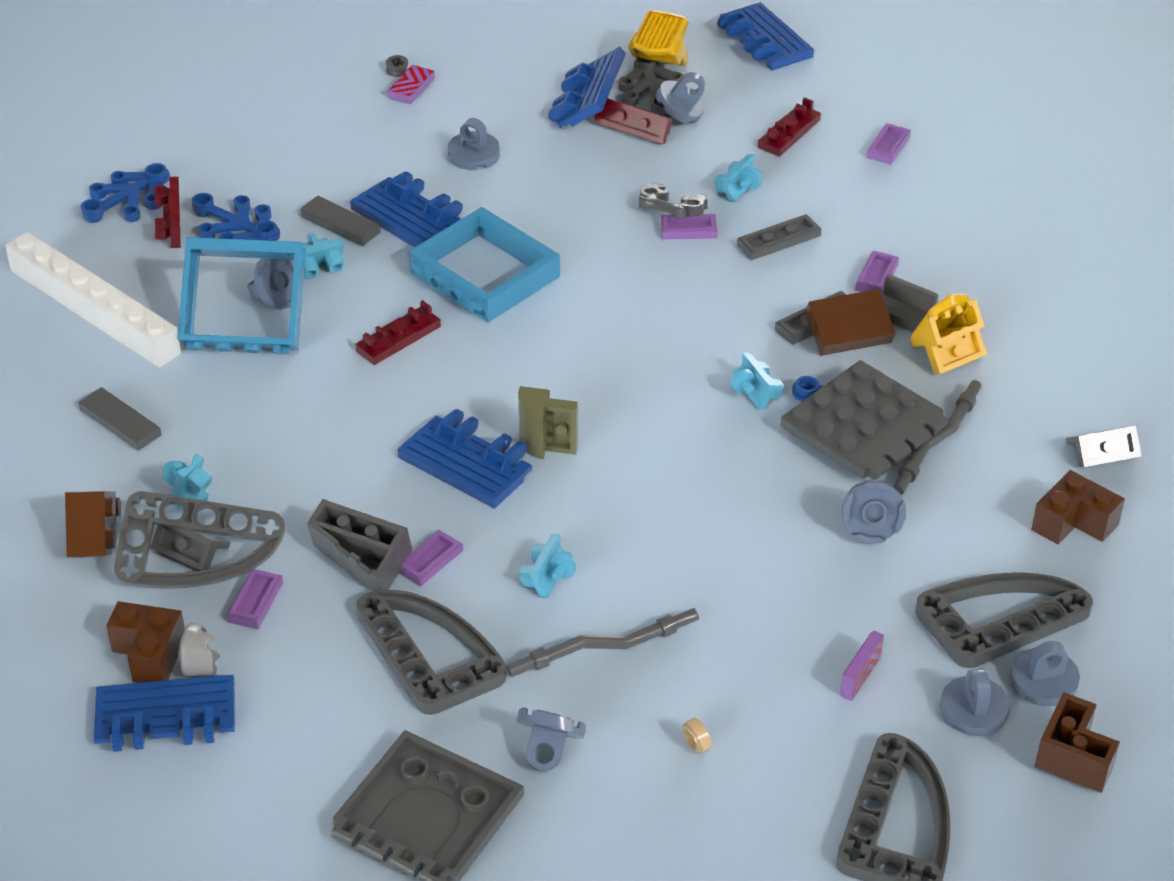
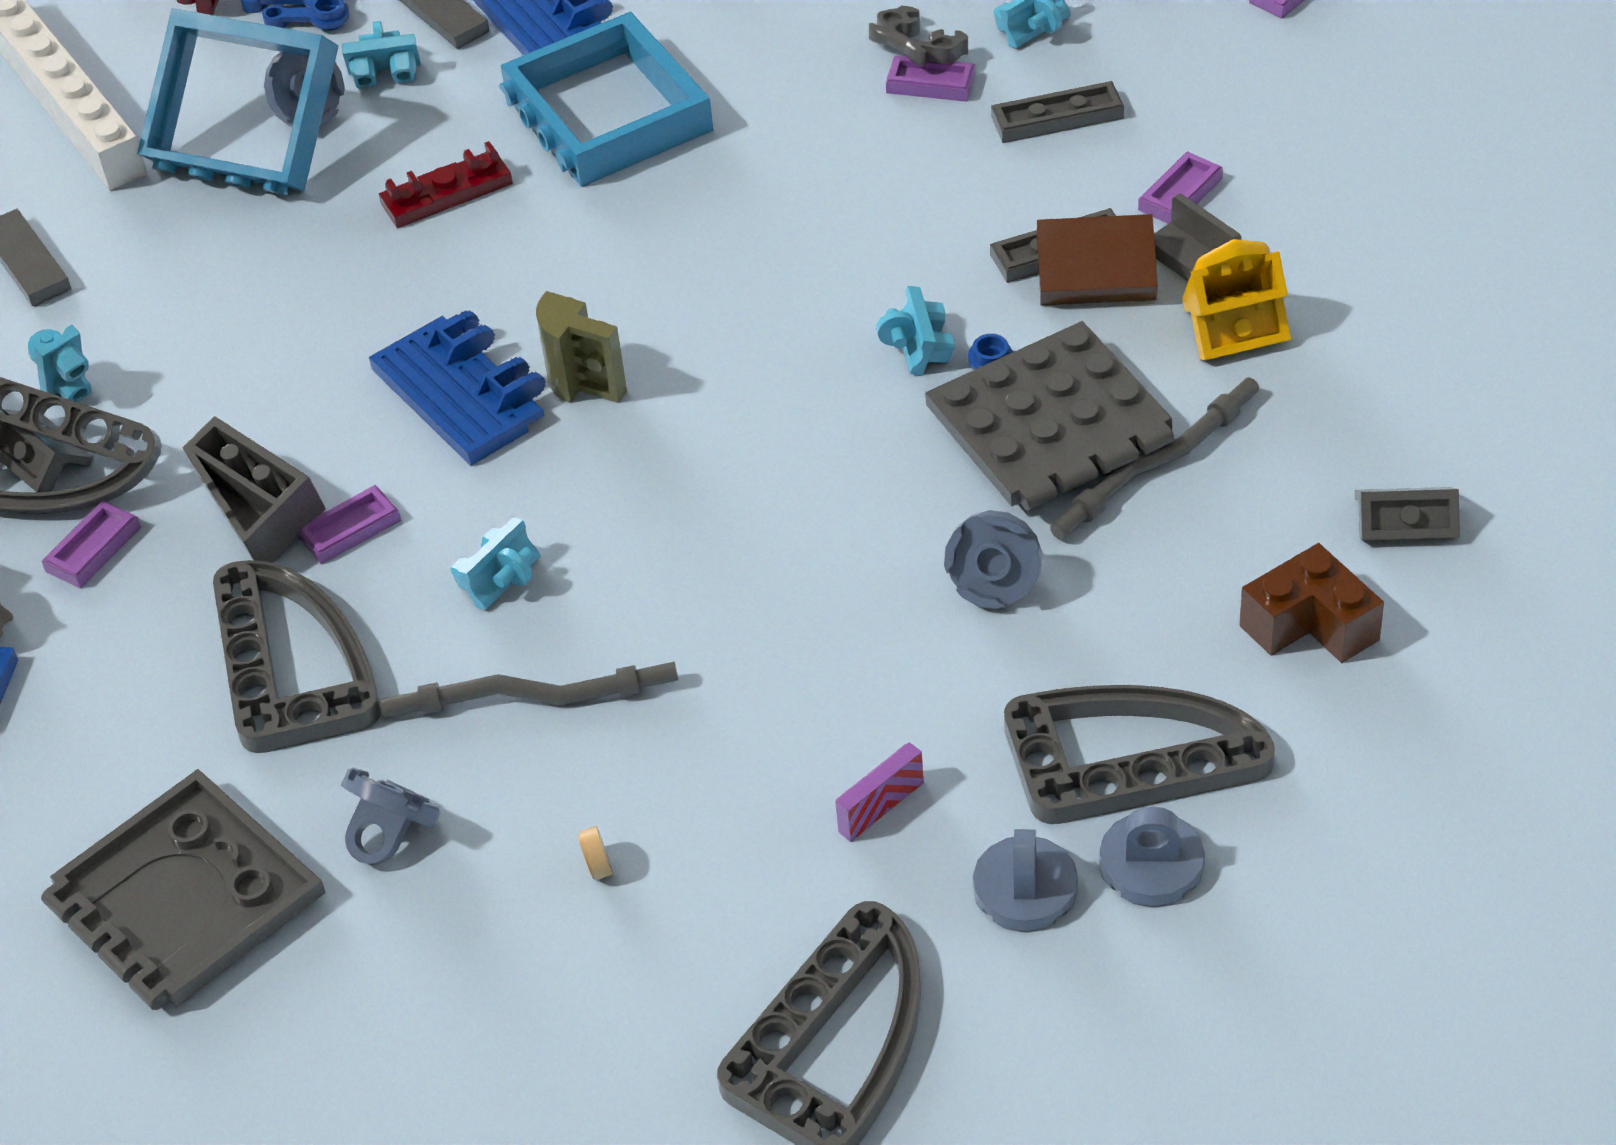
camera: 20 degrees right, 5 degrees up
(1074, 750) = (1130, 972): reddish brown brick -> none

